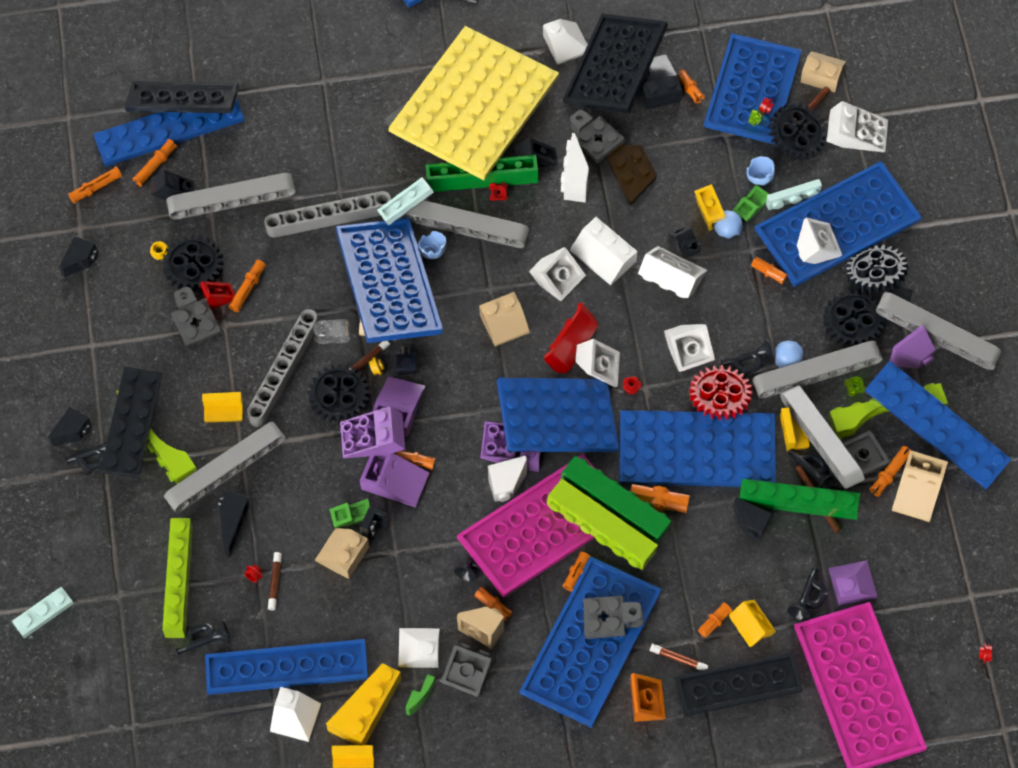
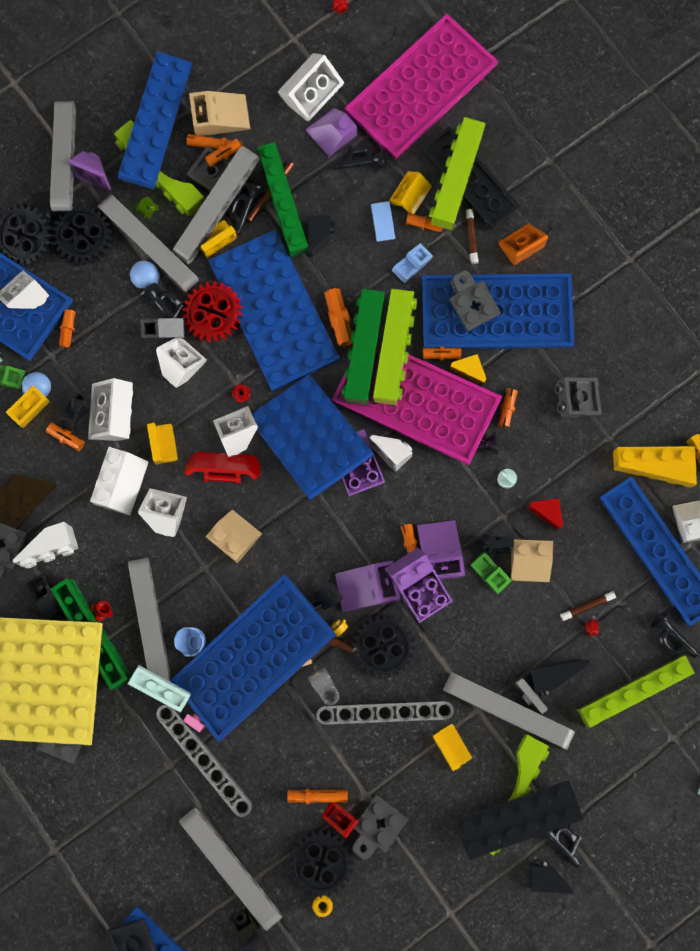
camera: 120 degrees left, 15 degrees up
(218, 491) = (530, 696): none -> light grey plate
(363, 217) = (195, 722): none -> bright pink plate
(376, 587) = (548, 511): none -> red slope
(417, 698) = (627, 425): bright green slope -> none
(418, 648) = (579, 449): white slope -> none
(428, 570) = (507, 478): none -> light aqua tile
(482, 625) = (537, 401): tan slope -> none
(546, 588) = (470, 369): none -> yellow slope
(620, 300) = (162, 443): none -> yellow panel
(668, 227) = (55, 431): none -> orange pin
(679, 590) = (412, 263): none -> light blue slope
(725, 342) = (163, 328): none -> slope
(735, 582) = (383, 221): none -> light blue slope
(745, 666) = (457, 174): none -> lime brick
(873, 468) = (233, 145): none -> orange pin
(908, 582) = (311, 86): none -> white slope

